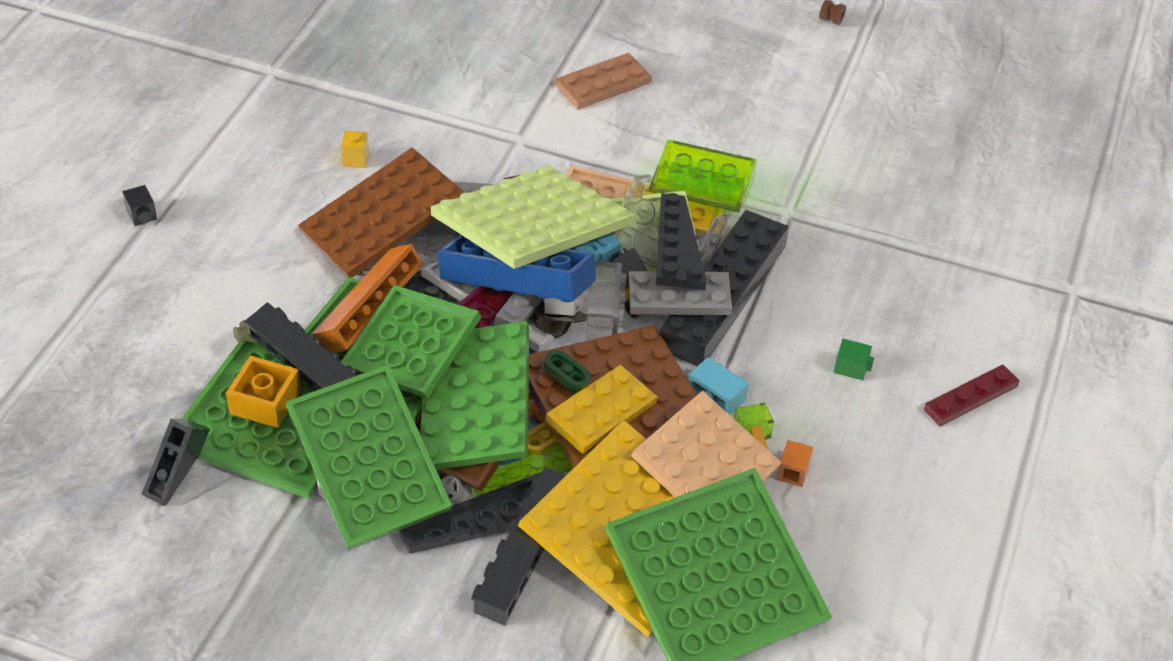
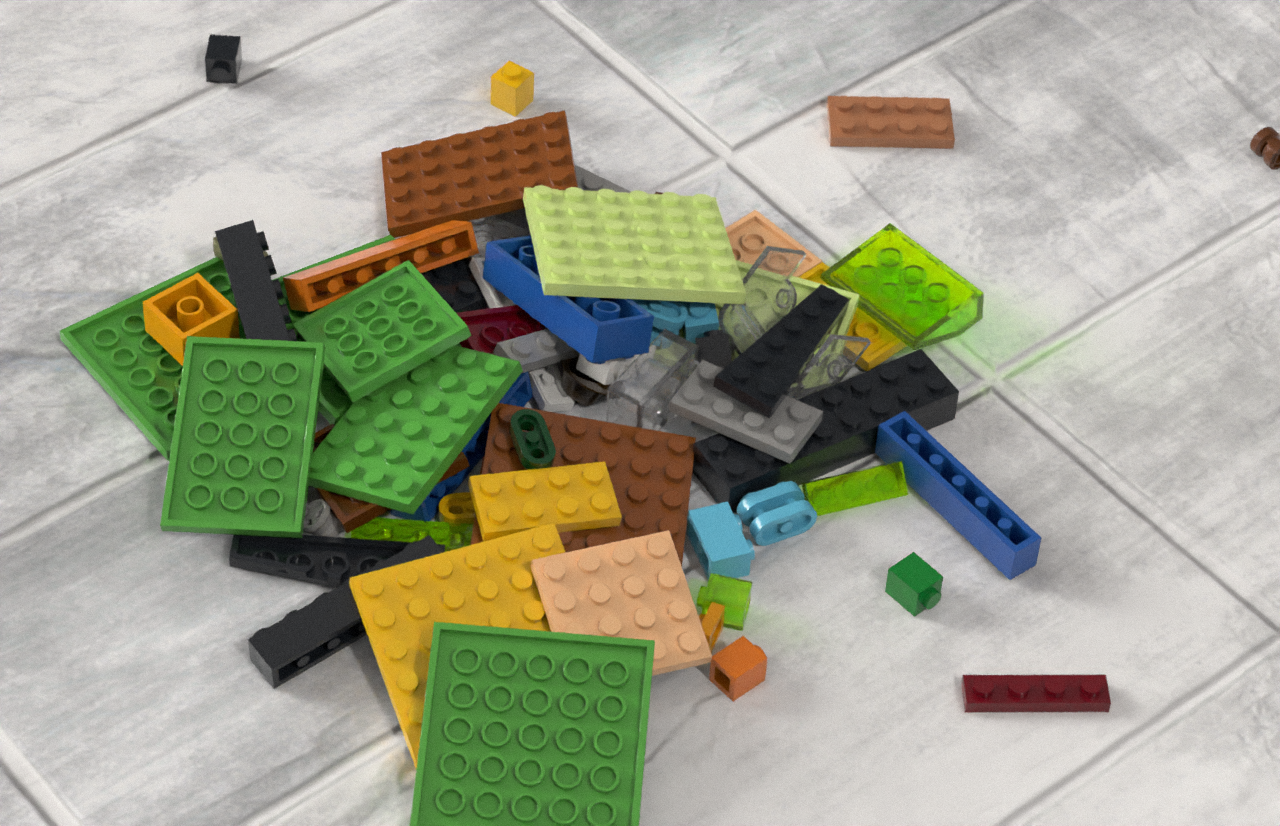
camera: 30 degrees right, 0 degrees up
(174, 459) = (56, 349): black slope -> none
(736, 351) = (776, 513): none -> medium azure brick
(769, 315) = (856, 488): none -> clear neon green plate
(835, 291) = (959, 496): none -> blue brick

